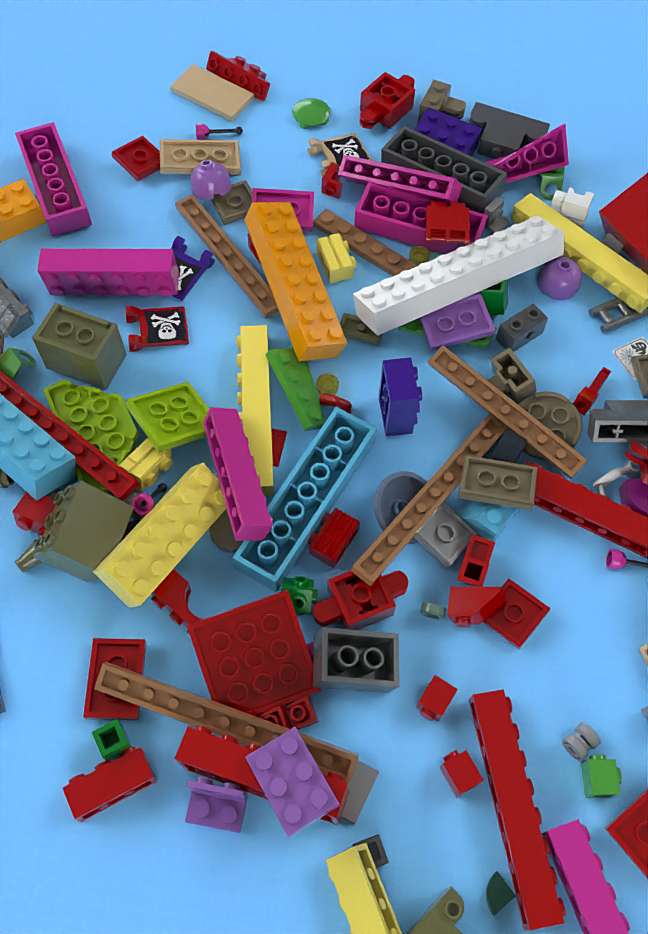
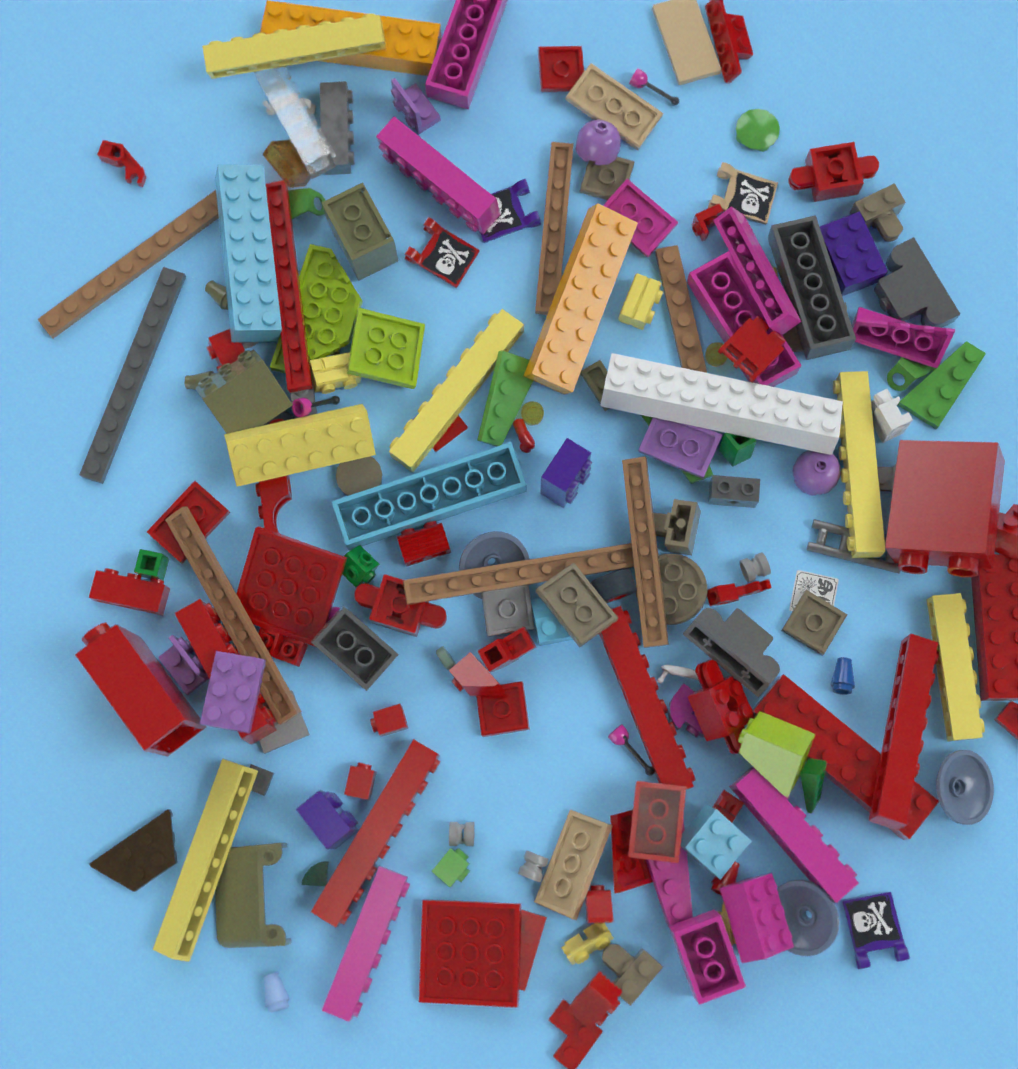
camera: 45 degrees right, 15 degrees up
(36, 239) = (415, 106): none -> medium lavender bracket
(196, 855) = (139, 689): none -> red brick
(237, 475) = (386, 438): dark pink brick -> none
(473, 825) = (328, 819): none -> dark purple brick
(495, 220) = (815, 370): light grey bracket -> none
(581, 171) = (940, 389): none -> bright green wing
(586, 366) = (755, 567): none -> light grey wheel

